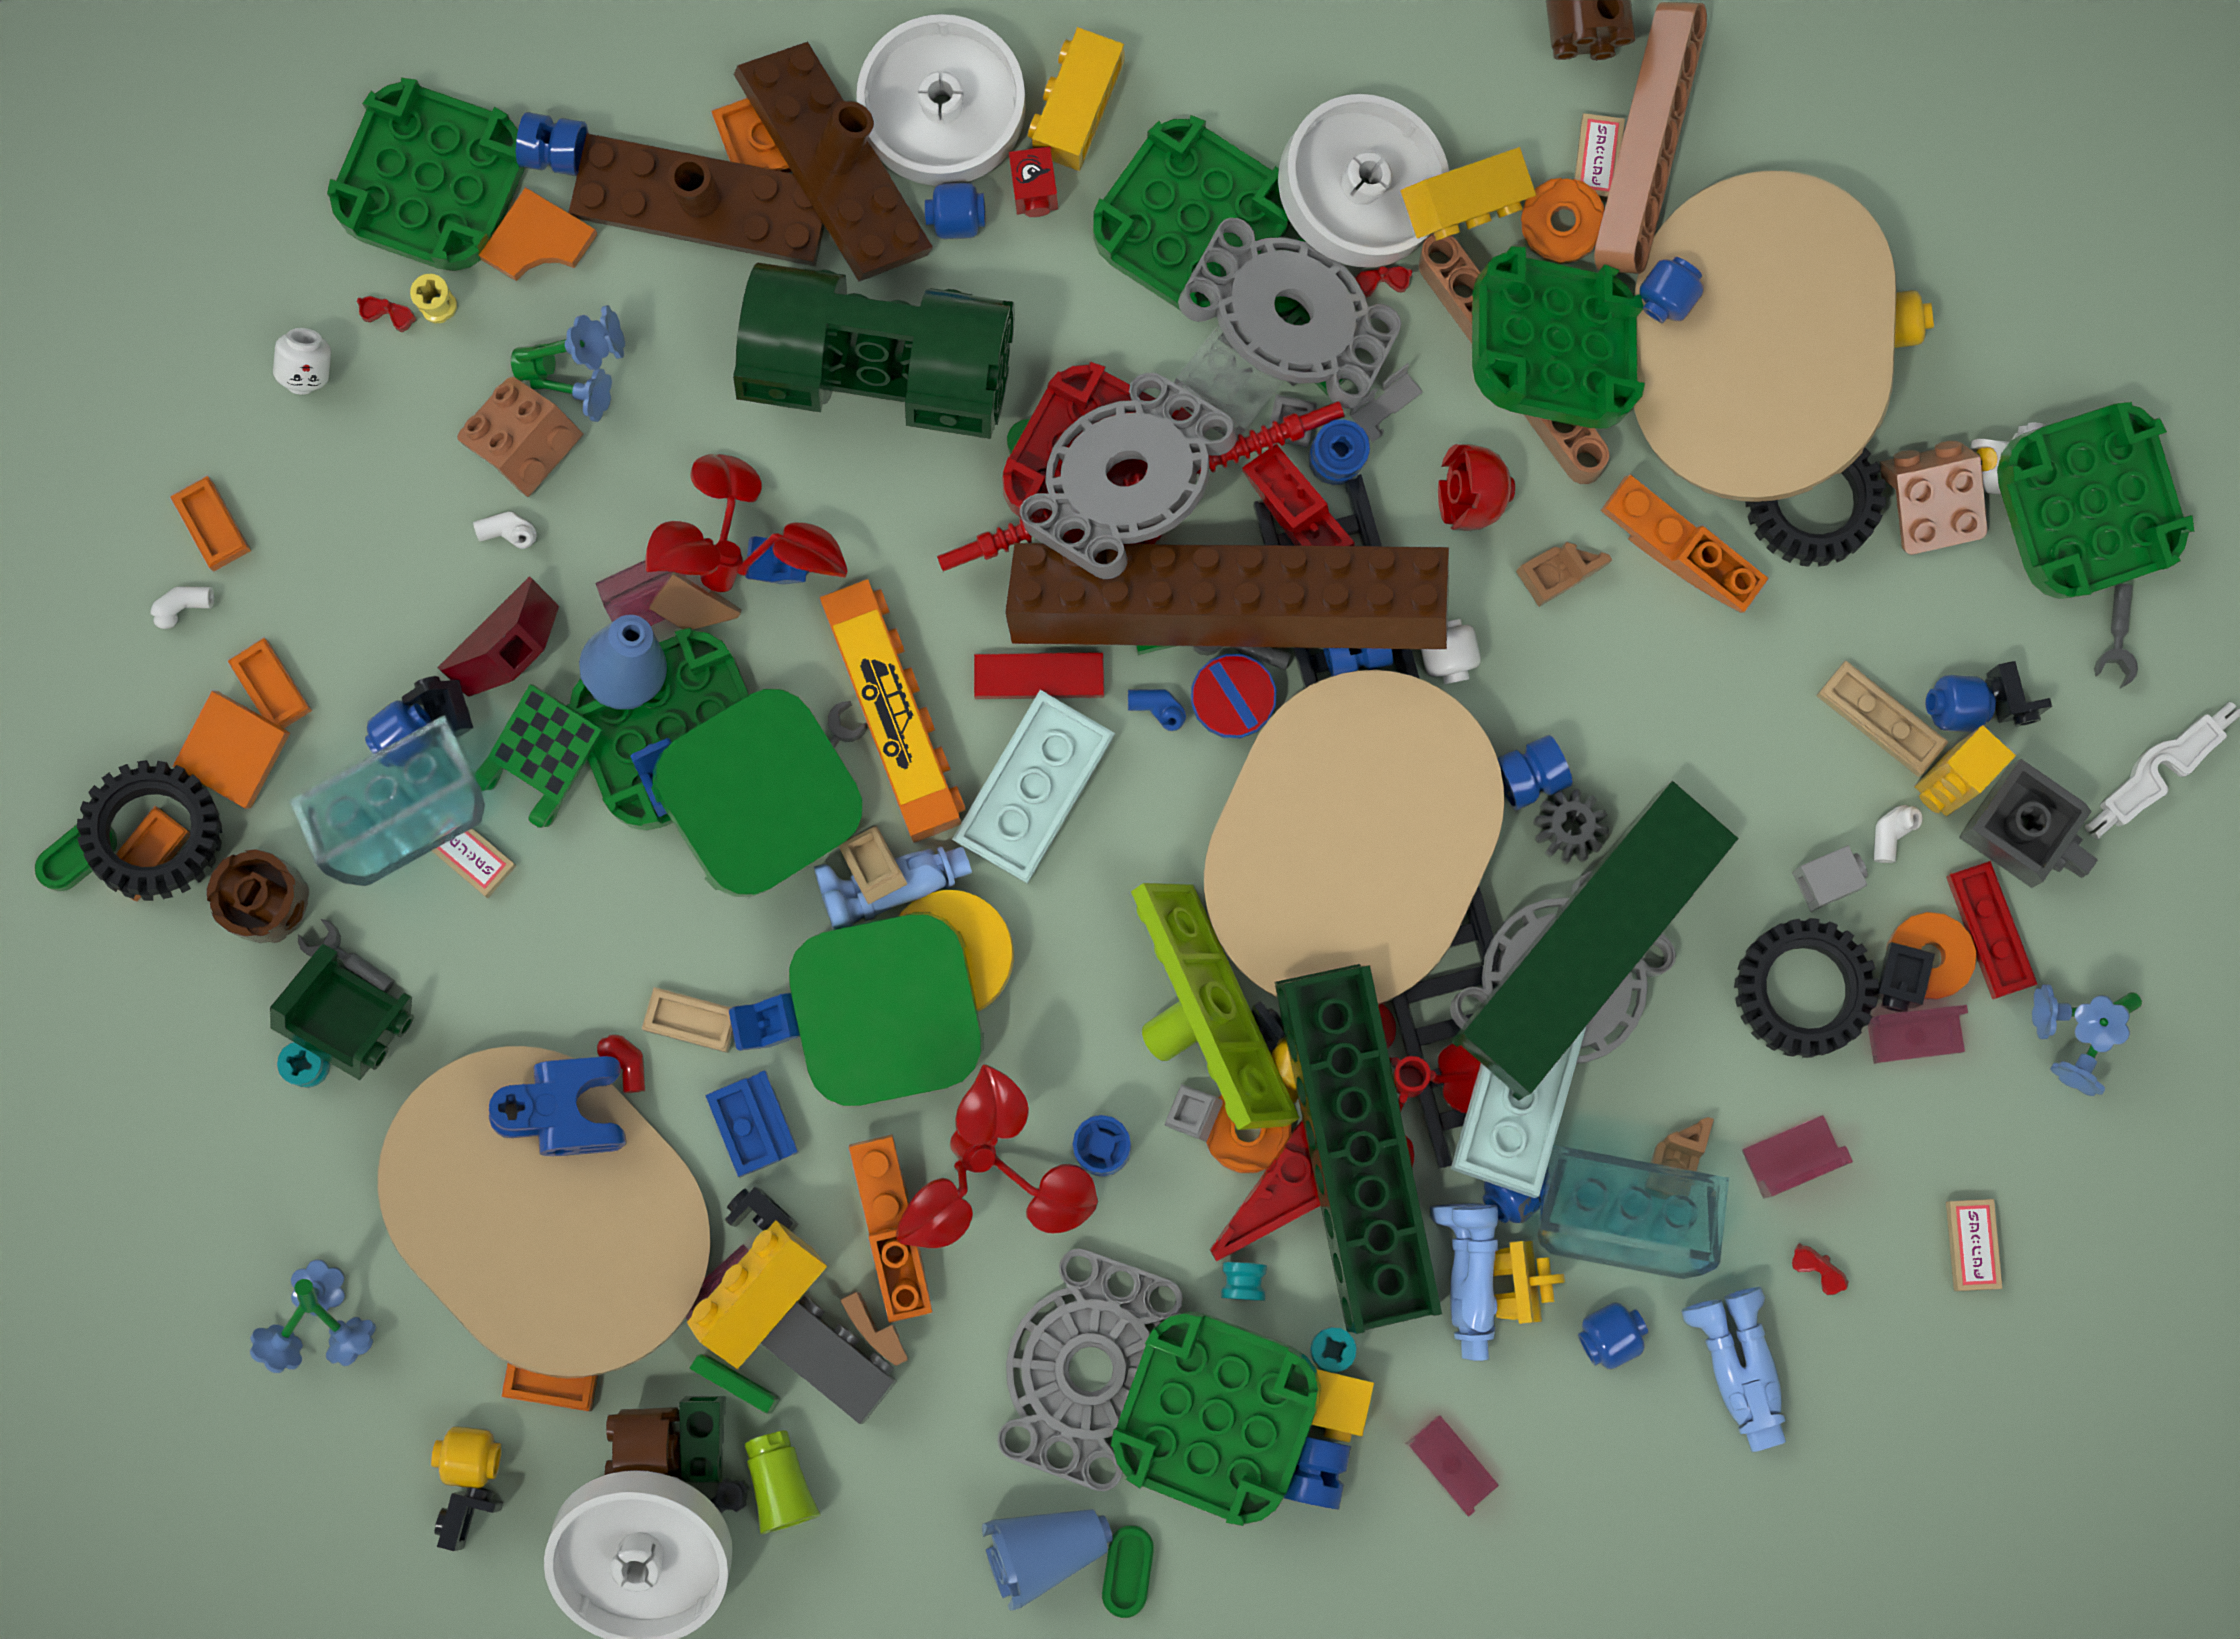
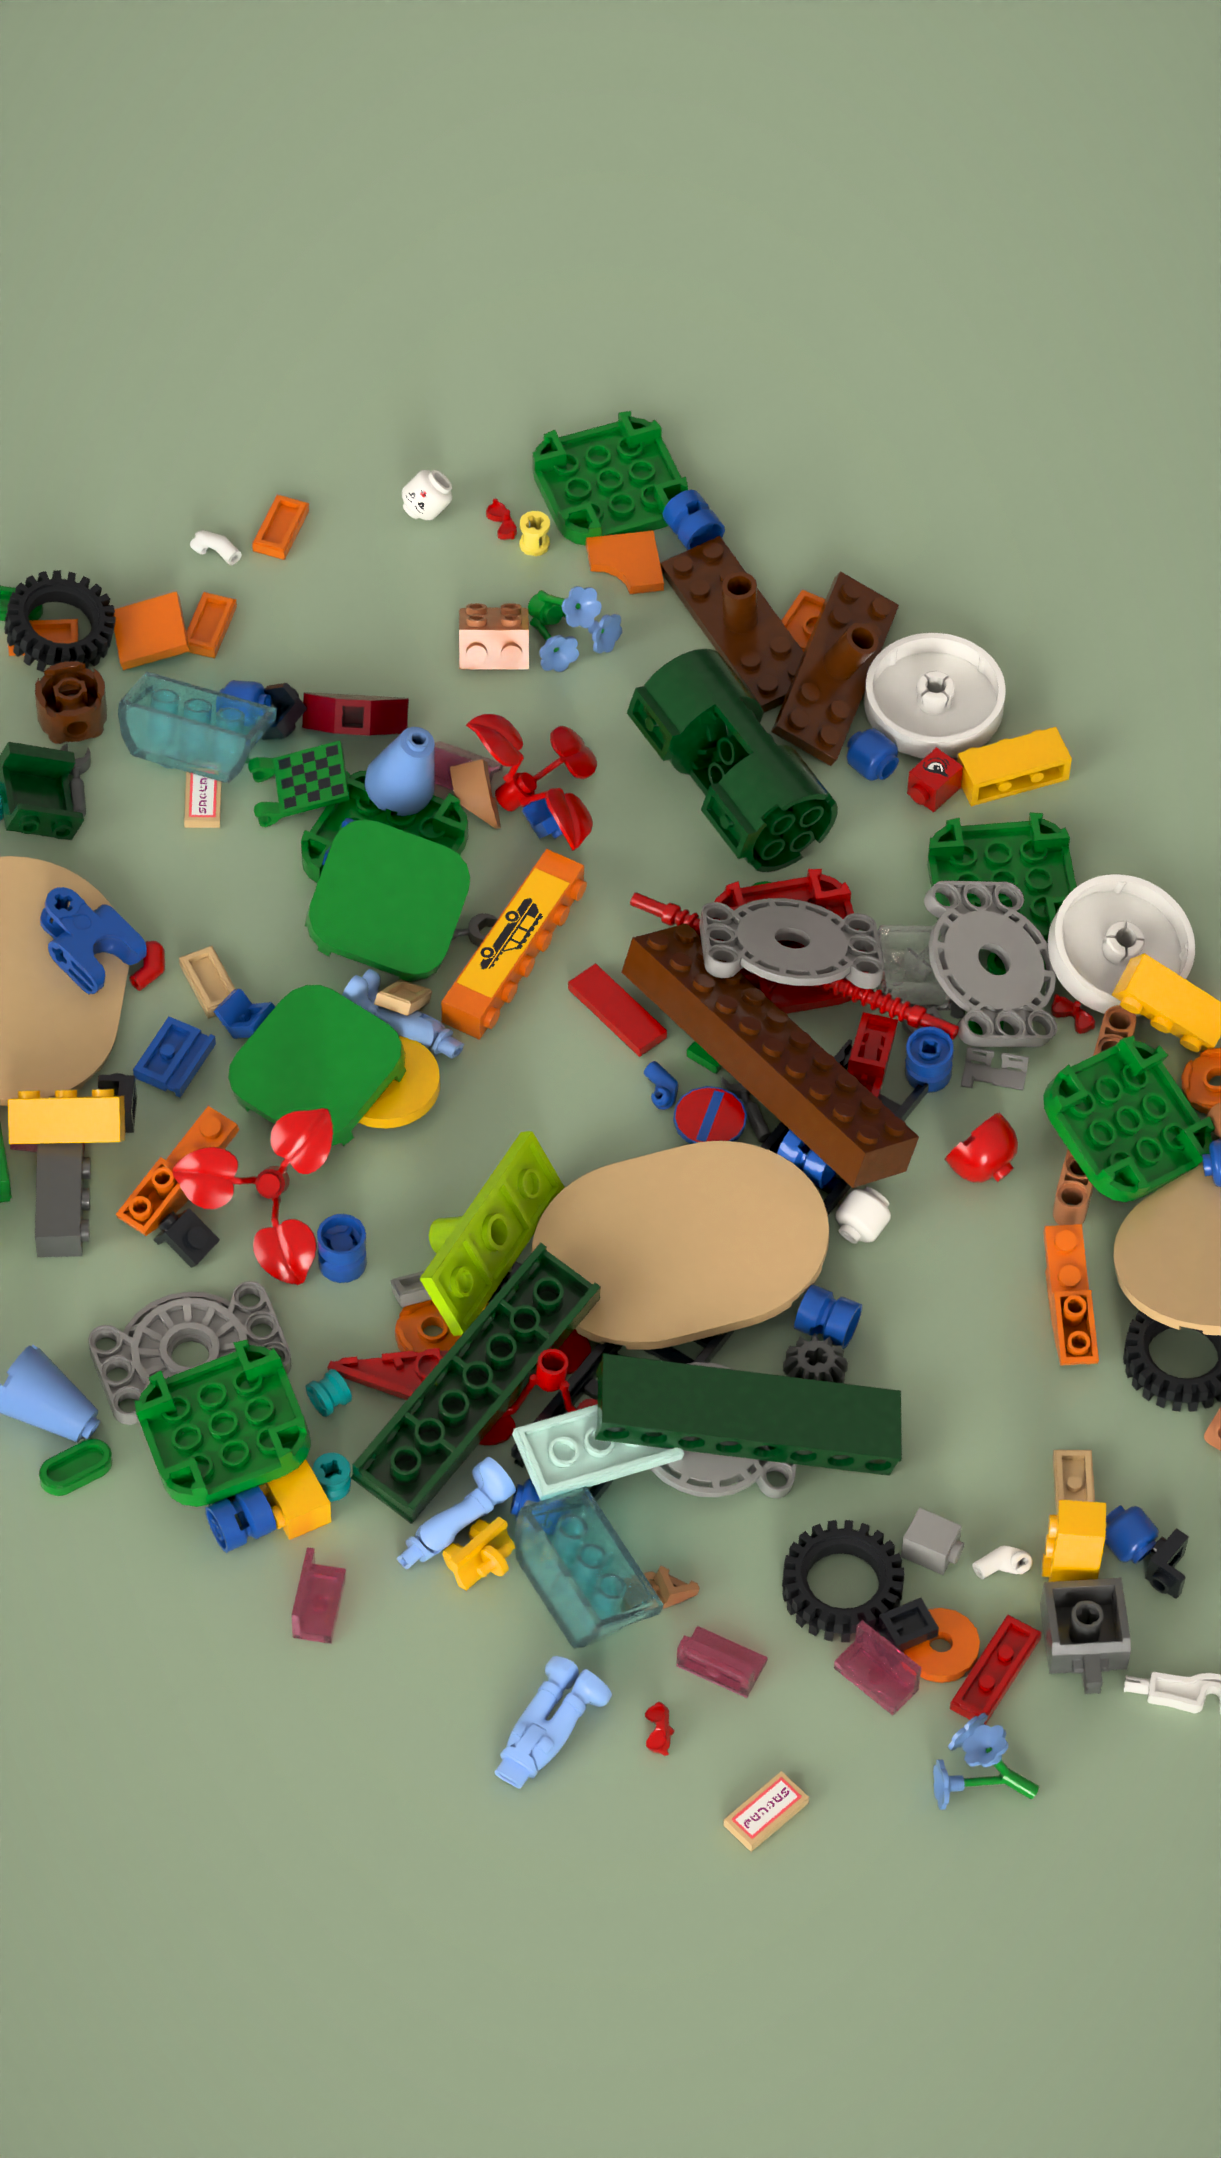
camera: 45 degrees right, 25 degrees down
(509, 526) = (430, 671): white arm -> none
(883, 1341) = (105, 1199): medium nougat slope -> none
(963, 1274) = (186, 1236): none -> black bracket
(1033, 786) = (541, 1054): light aqua tile -> none
(1559, 571) = (982, 1246): medium nougat slope -> none
(1613, 1335) = (495, 1631): blue head -> none

